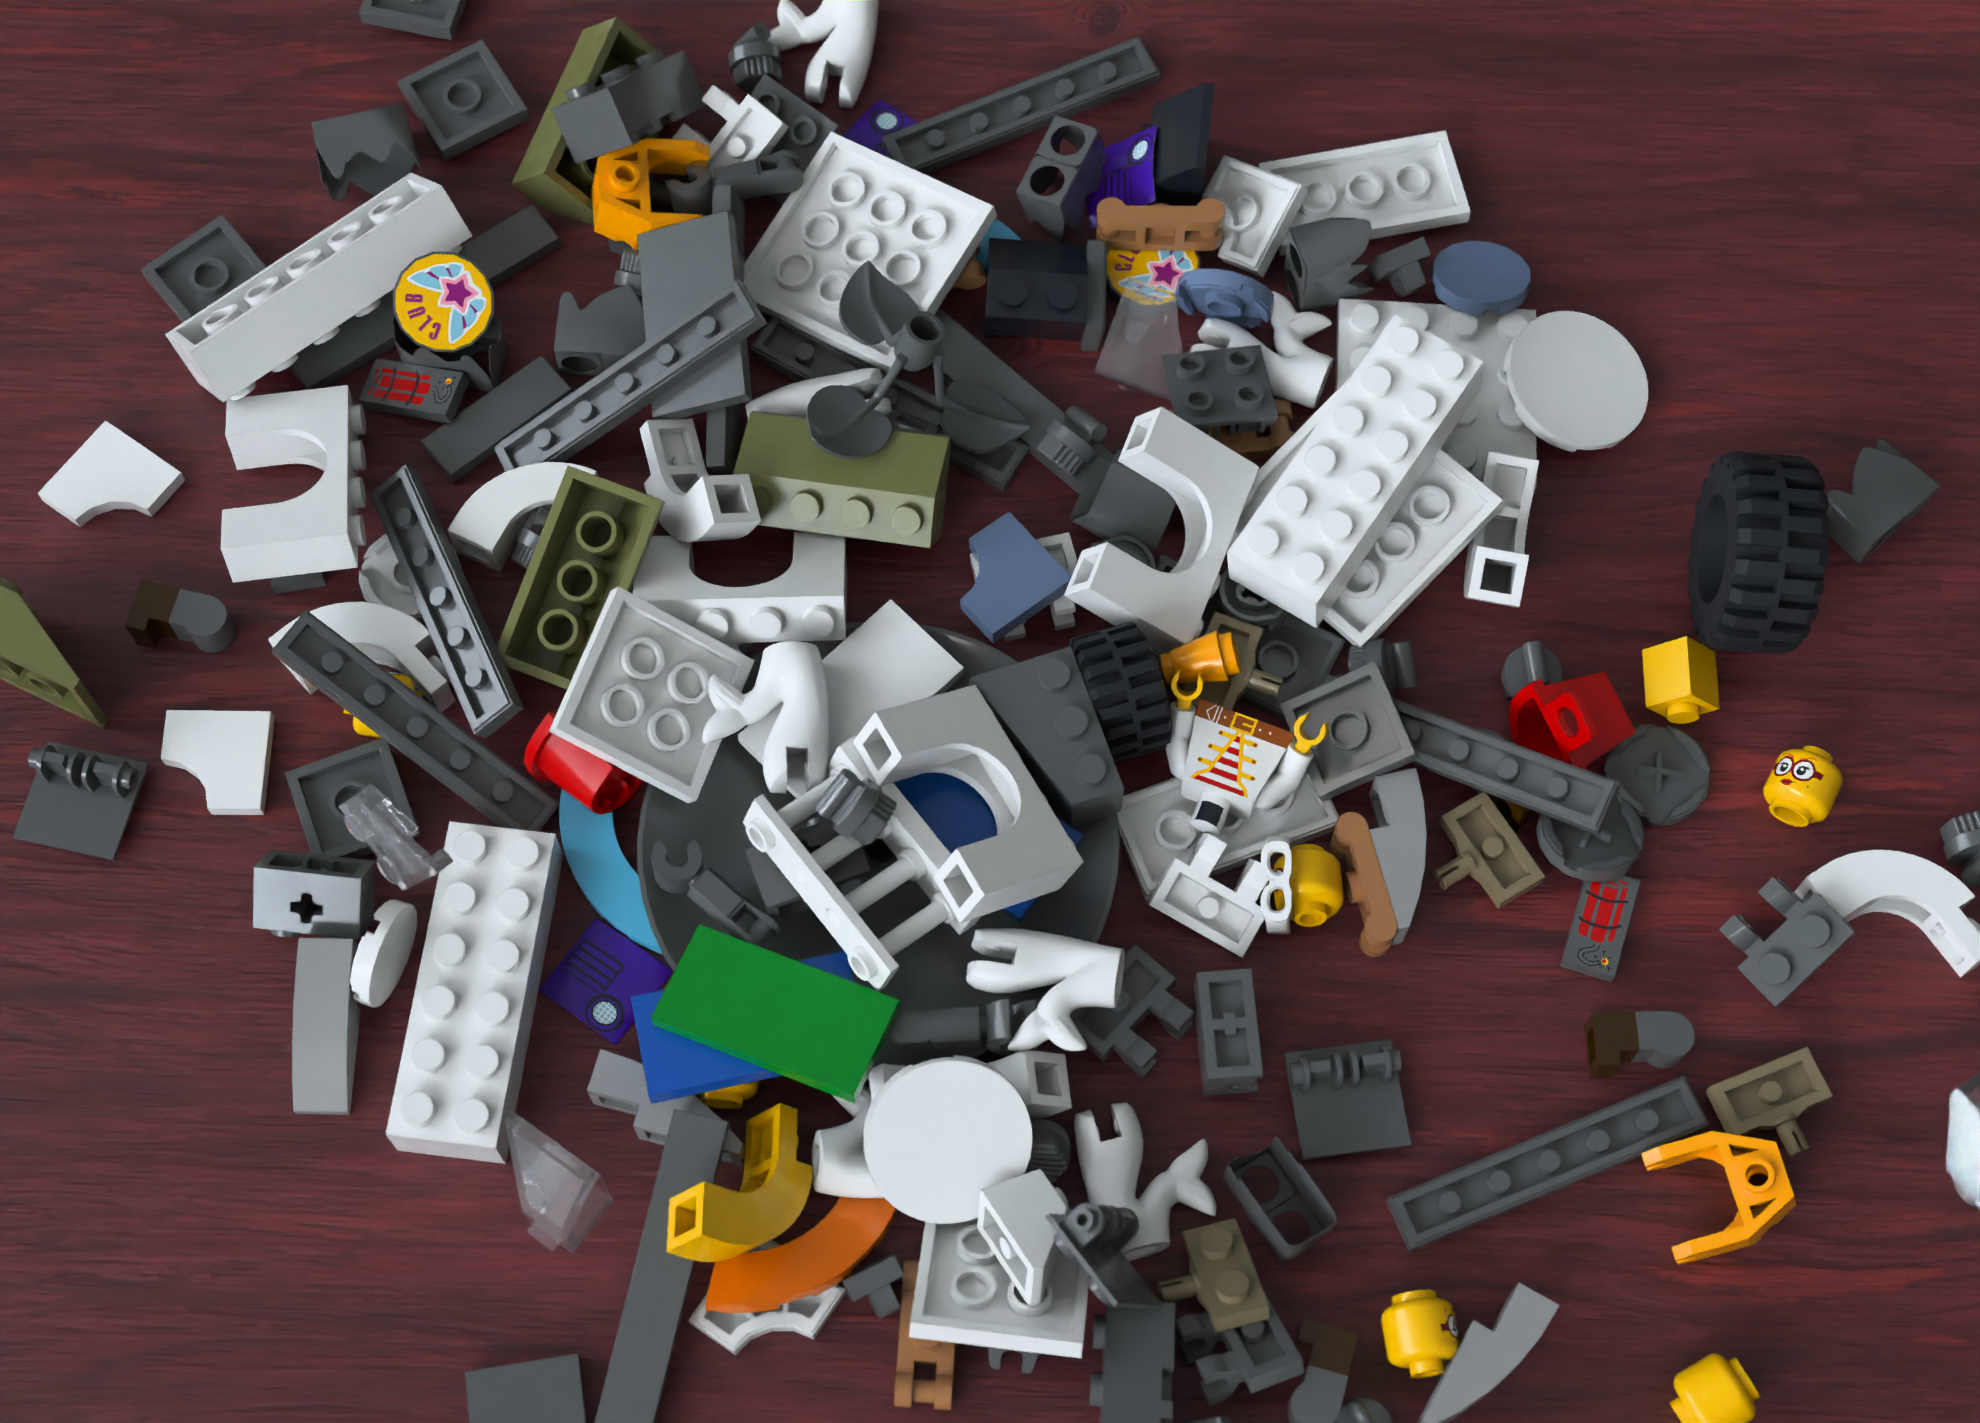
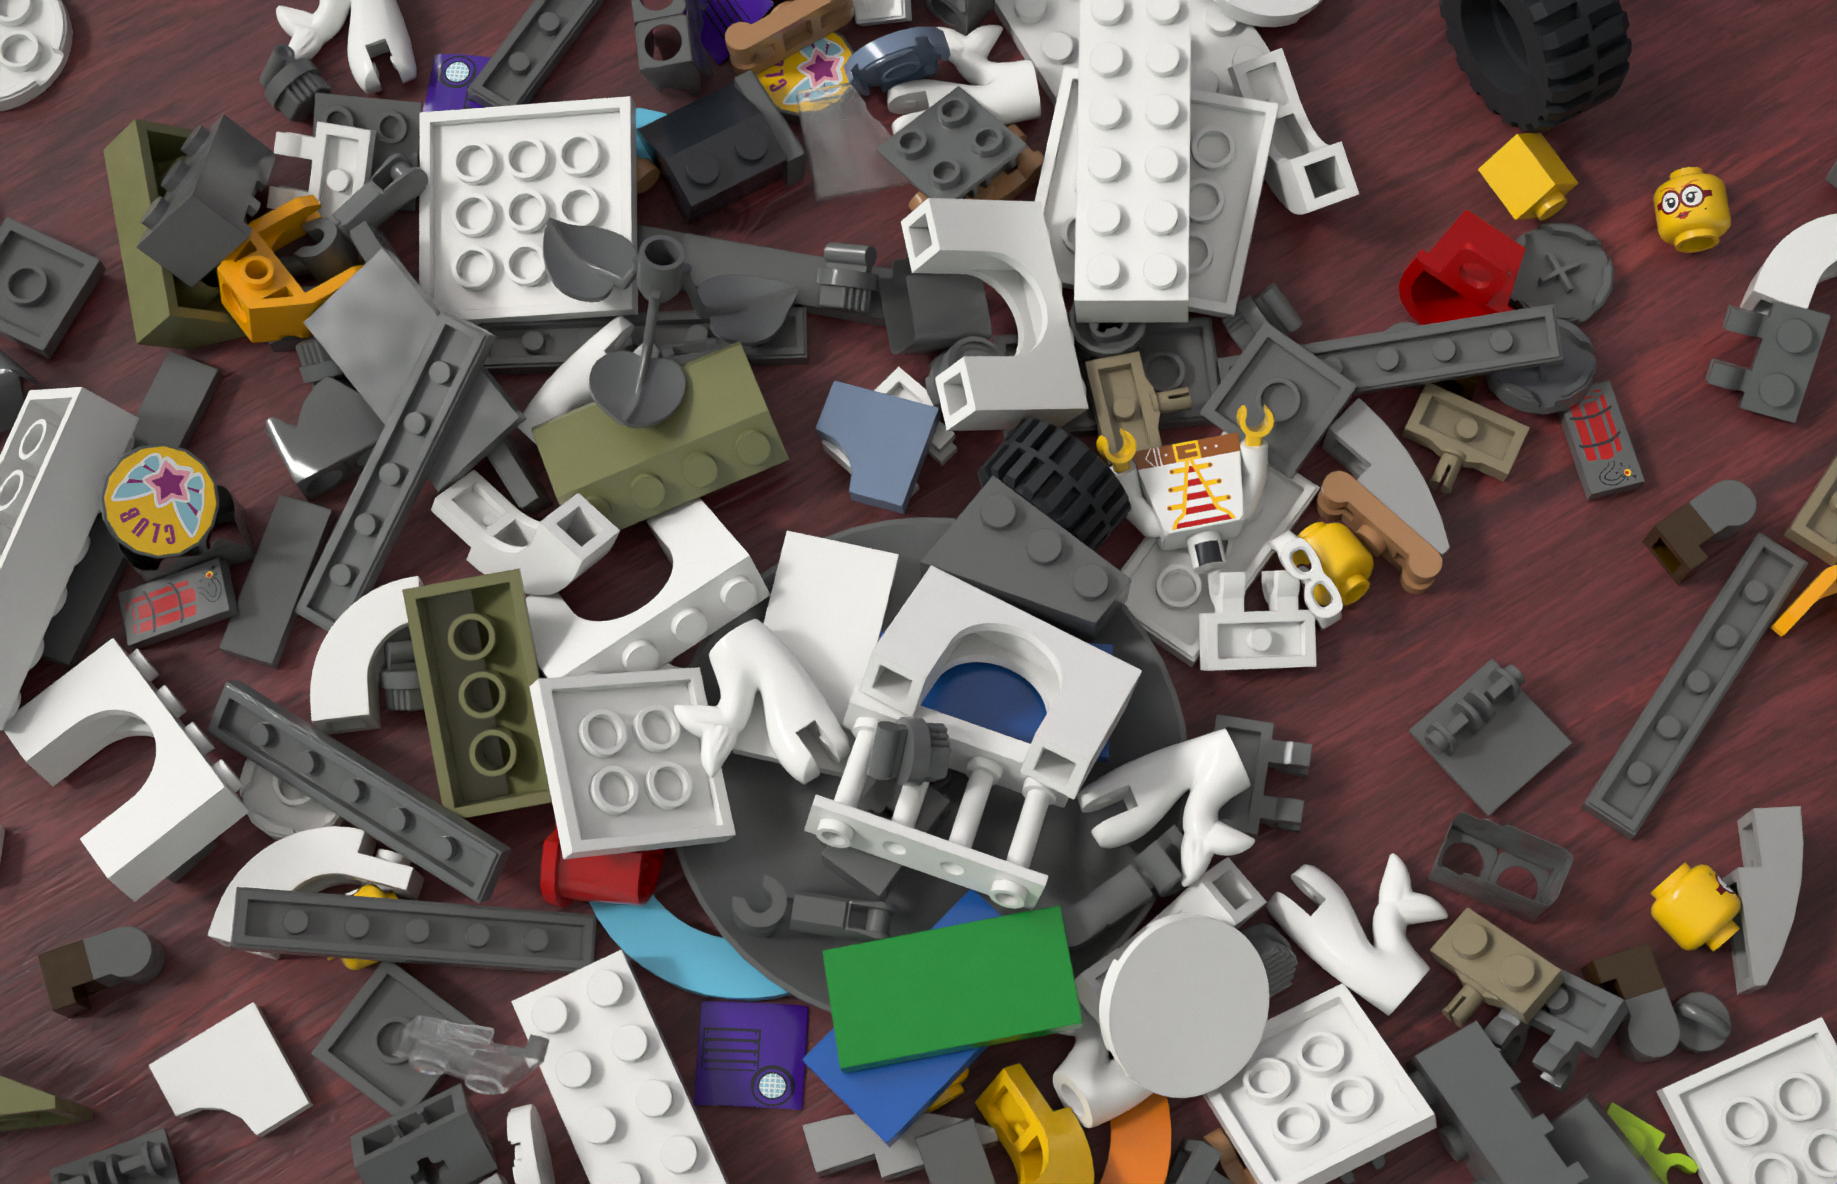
camera: 30 degrees left, 5 degrees up
(1017, 1231) = (1307, 1043): white slope -> none
(1094, 1238) = (1375, 1017): dark grey hinge -> none
(1211, 655) = (1113, 407): light orange cone -> none
(1227, 1032) = (1354, 743): dark grey hinge -> none
(1527, 665) = (1392, 247): dark grey piece -> none

